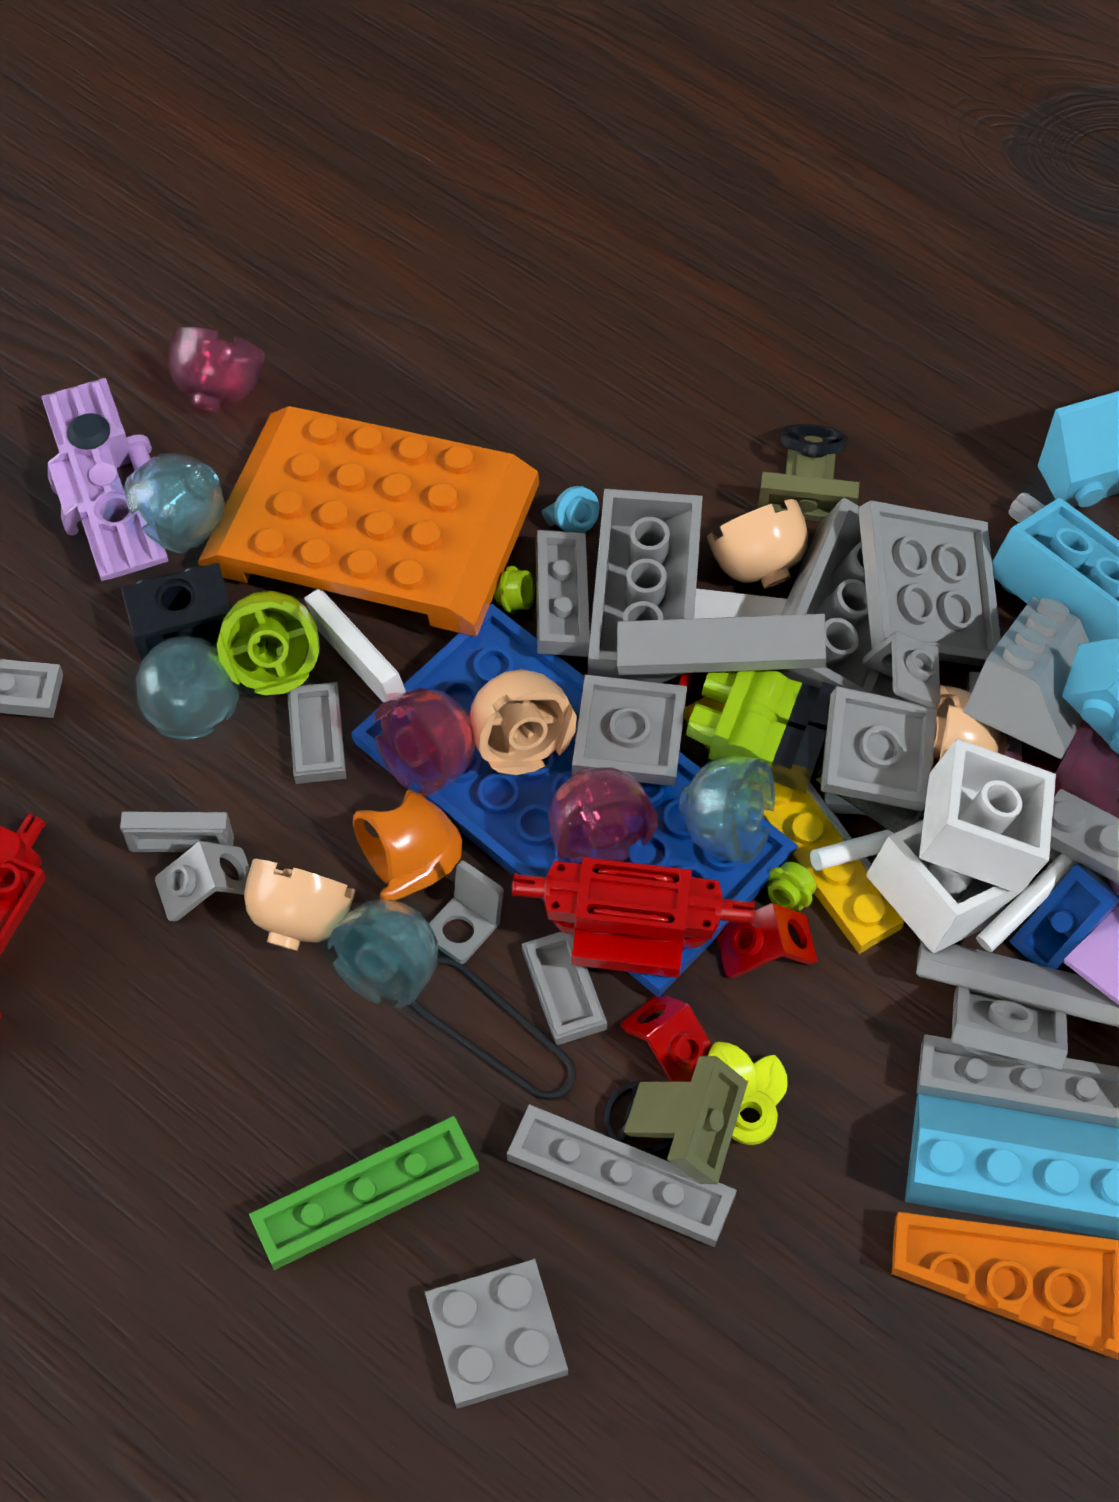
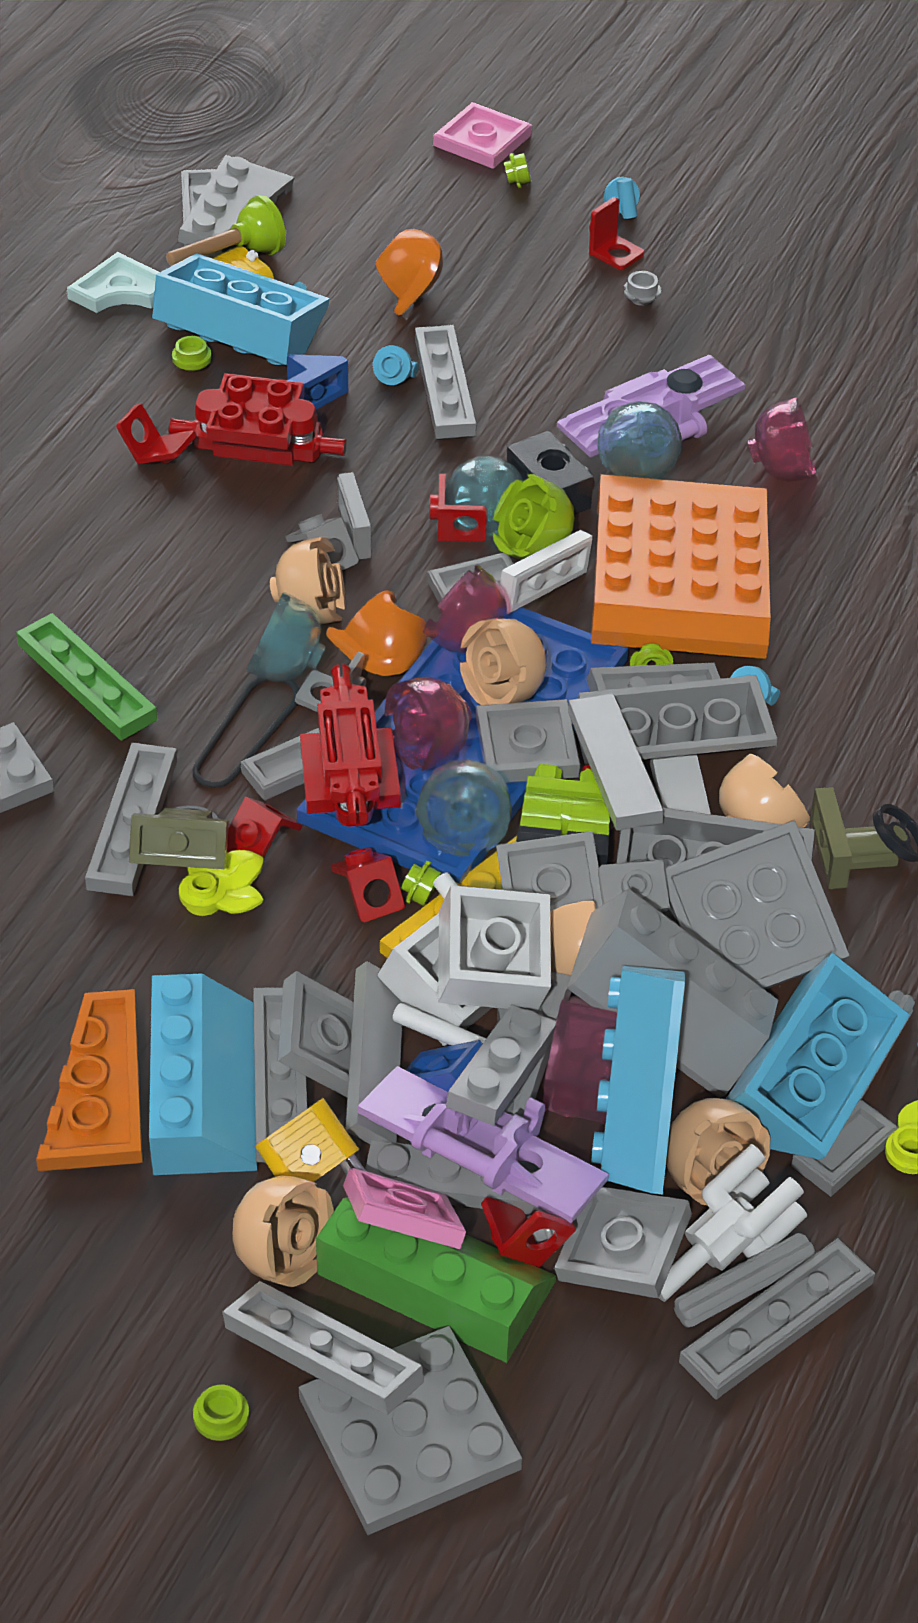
camera: 75 degrees right, 15 degrees down
(201, 737) = (449, 513): none -> red bracket

